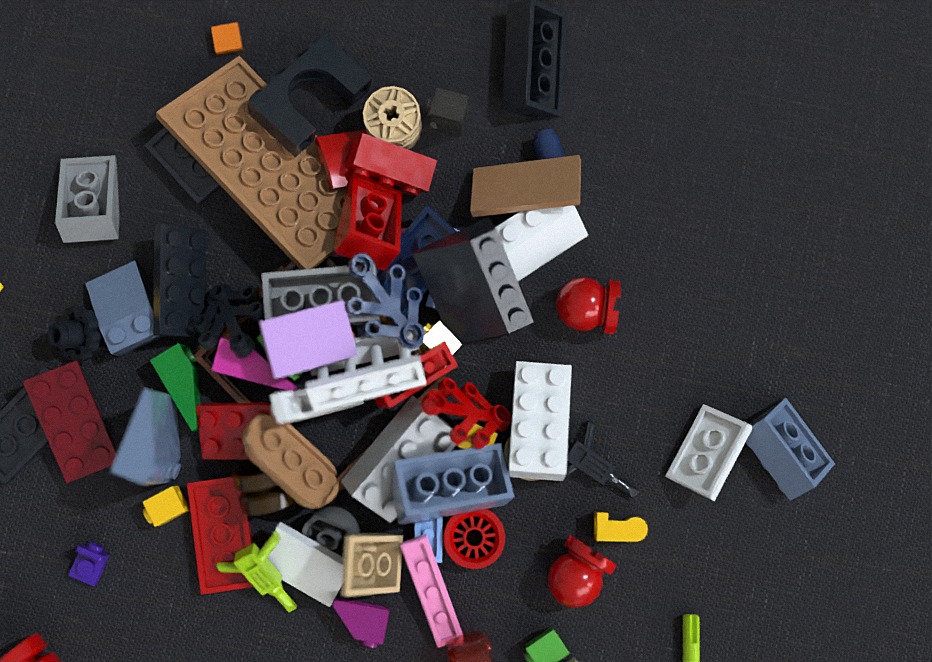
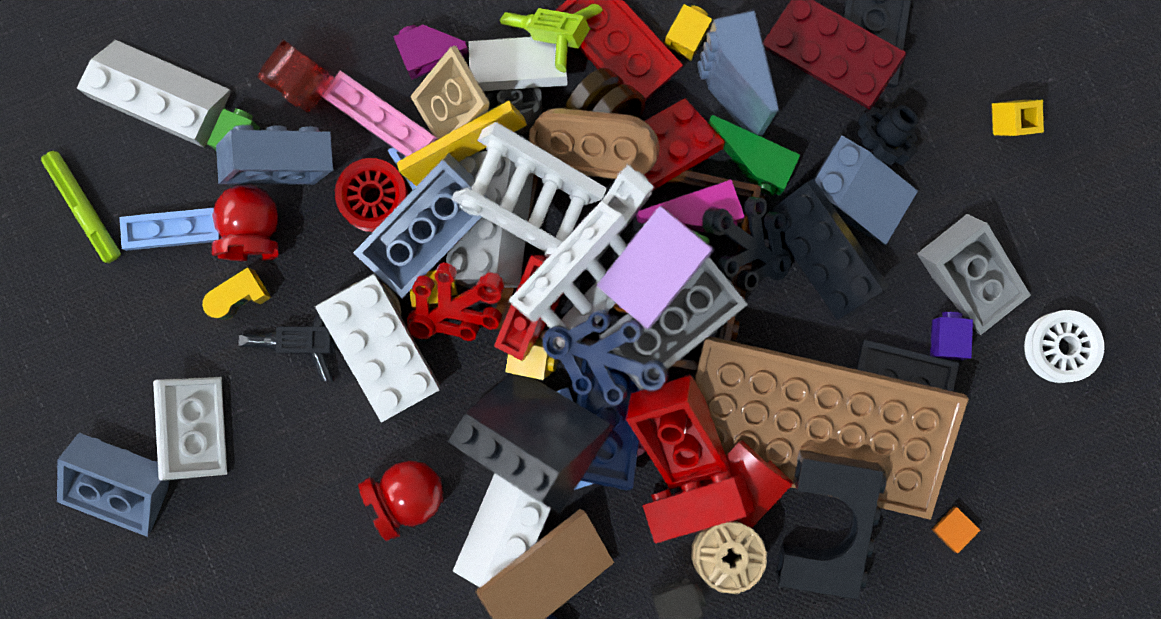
camera: 145 degrees right, 0 degrees up
(57, 87) = (1082, 325): none -> white wheel
(136, 165) = (951, 337): none -> dark purple brick
(345, 477) = (527, 159): none -> white fence
(383, 526) = (459, 143): none -> yellow tile
(526, 608) = (274, 156): none -> sand blue brick
(636, 609) = (168, 229): none -> light blue plate

